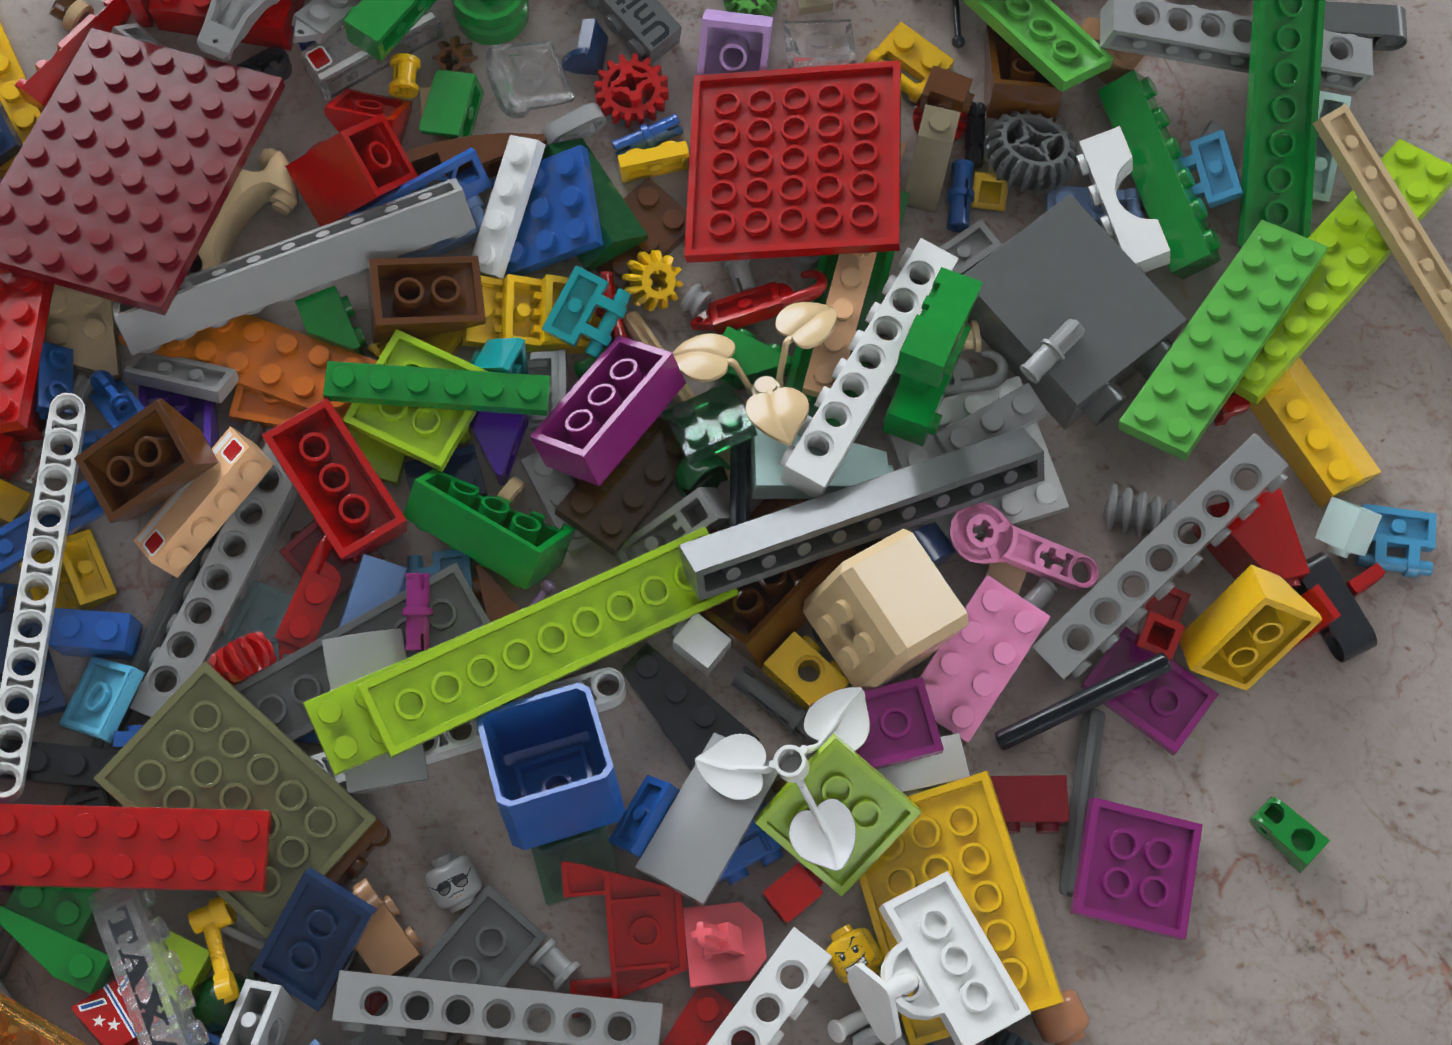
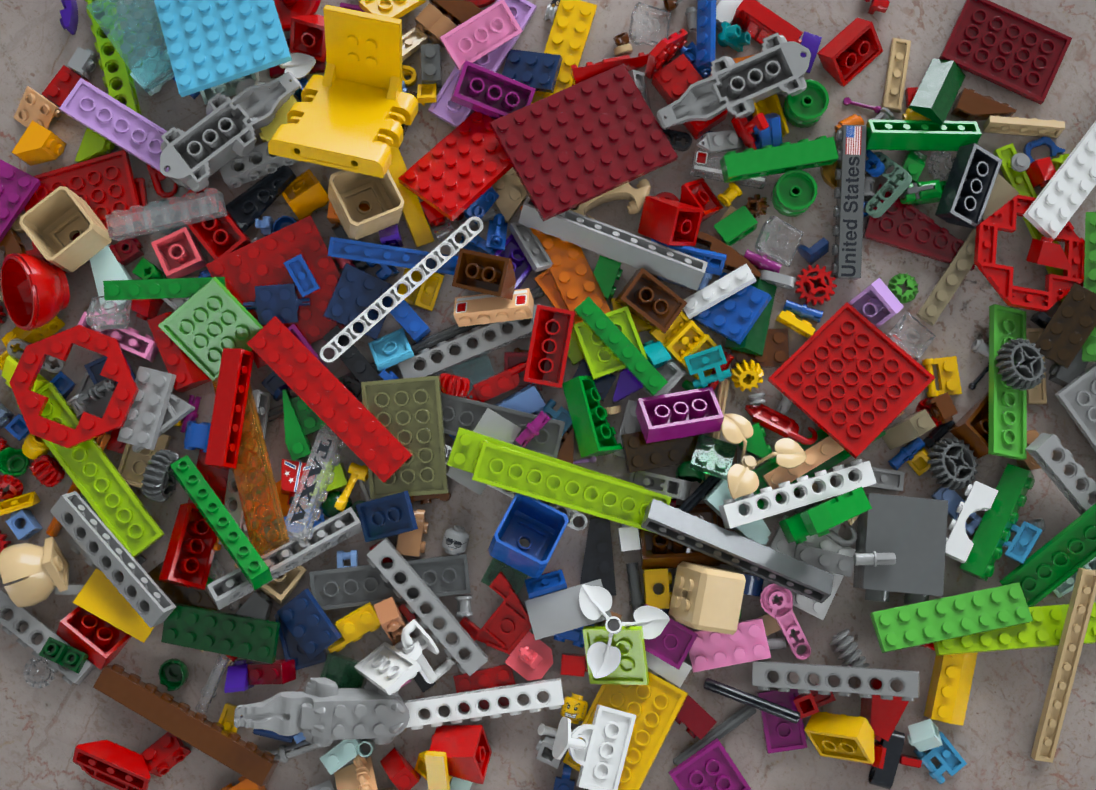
camera: 45 degrees right, 10 degrees up
(532, 121) = (762, 261): none -> magenta pin

